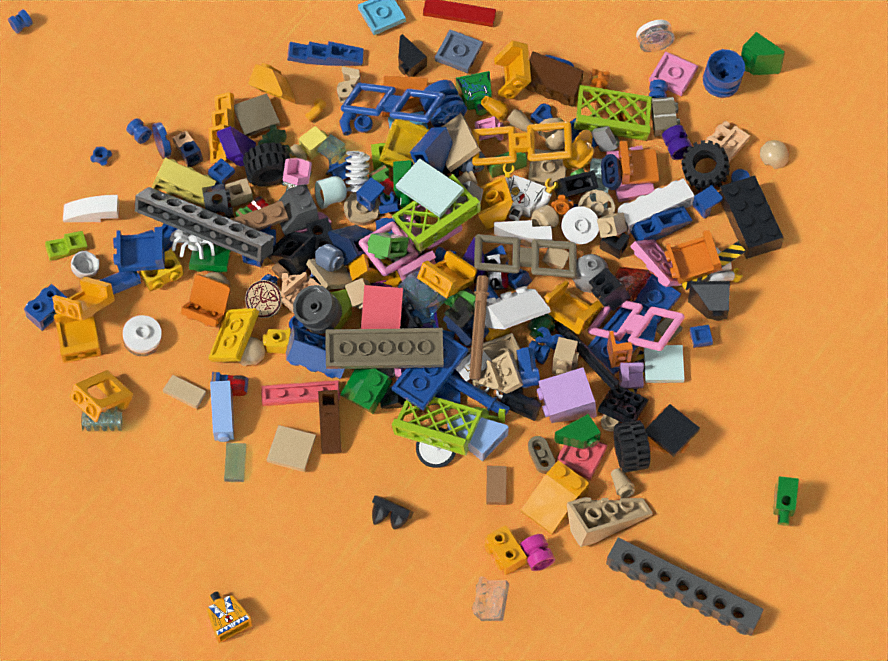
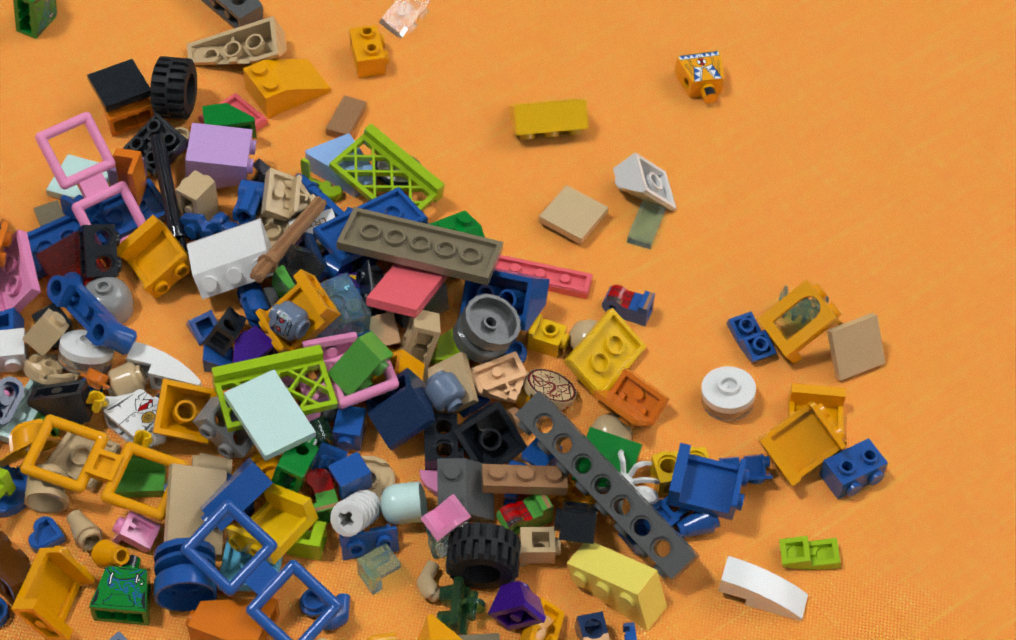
camera: 165 degrees left, 10 degrees down
(54, 396) = (856, 346): none -> tan tile
(84, 264) = (788, 505): white hair -> none
(141, 393) = (750, 338): none -> blue slope
(184, 391) = (688, 318): tan tile -> none
(221, 172) = (557, 578): blue panel -> none
(222, 411) = (647, 266): light blue slope -> none
(243, 490) = (644, 181): none -> white slope
(311, 141) = (400, 590): light yellow brick -> none
(329, 421) = (516, 226): reddish brown slope -> none
(339, 534) = (549, 117): none -> yellow slope
(382, 508) = (477, 122): black tile -> none
(449, 262) = (289, 320): none -> sand blue head
(526, 256) = (185, 325): dark tan bar -> none
(537, 552) = (334, 36): dark pink wheel -> none
(540, 456) = (279, 127): dark tan plate -> none
(555, 257) = (143, 326): tan slope -> none
(612, 253) = (102, 326): none -> blue plate
(623, 485) = (205, 75): tan cone -> none
(701, 336) = (17, 192): blue plate -> none

